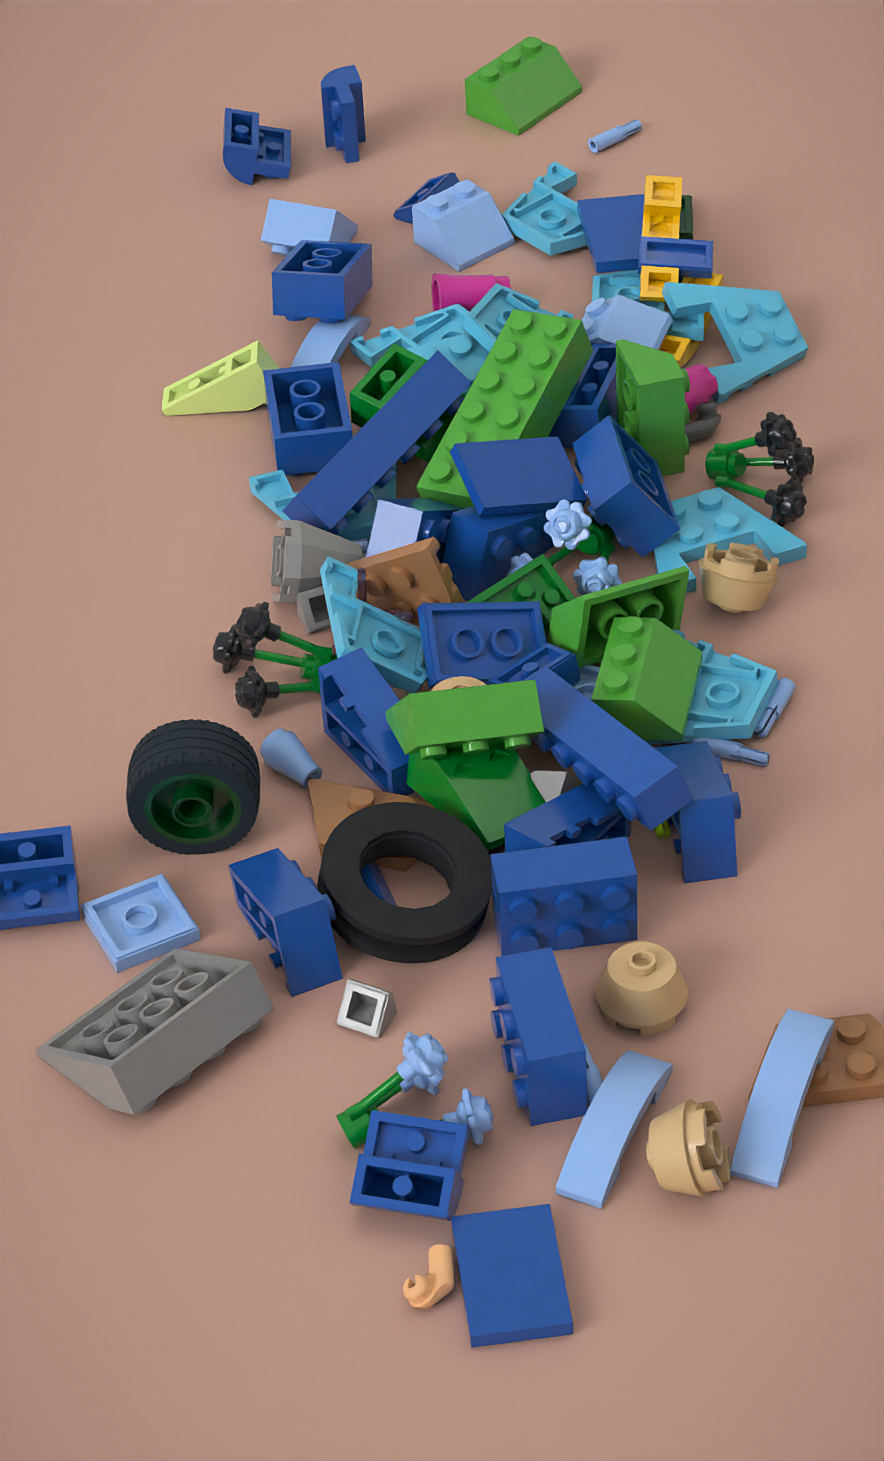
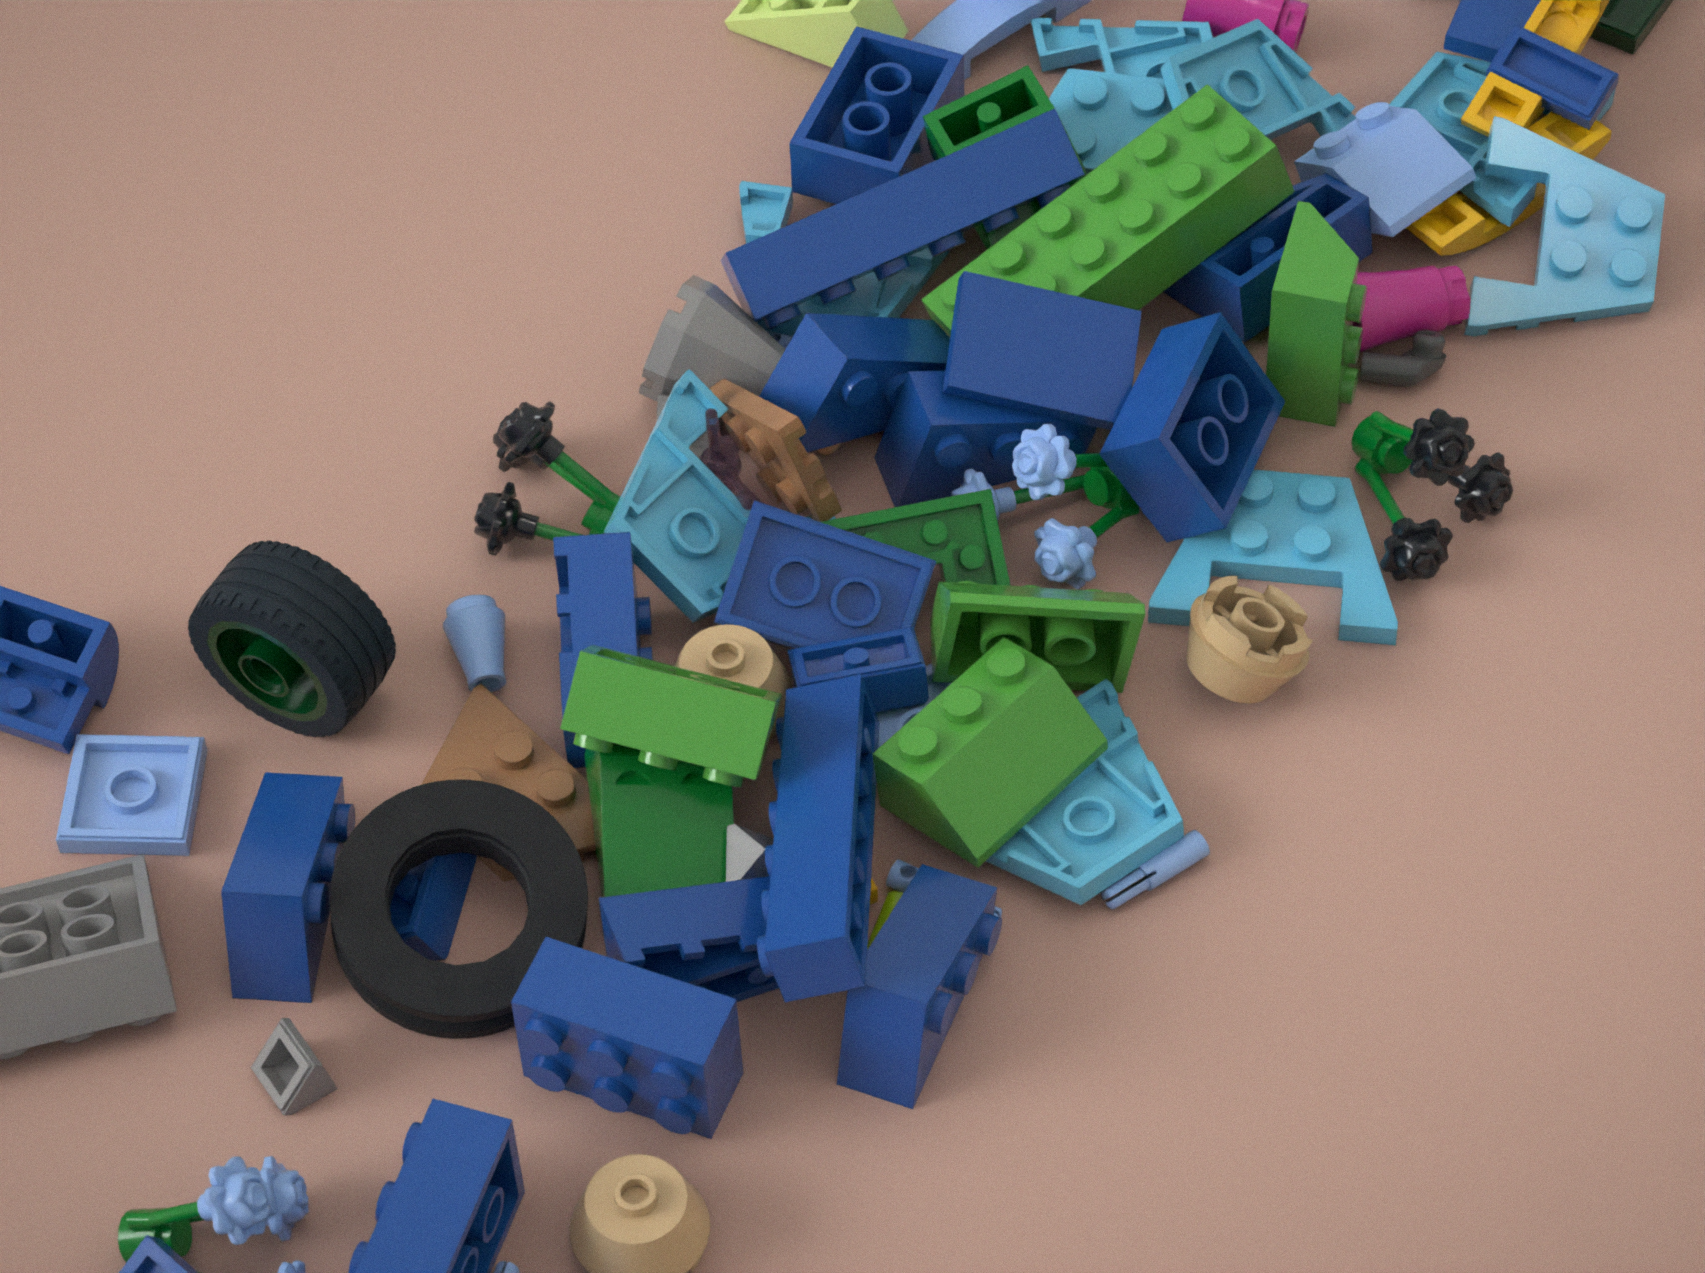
camera: 30 degrees right, 10 degrees up
(736, 751) = (1051, 911): light blue piece -> none

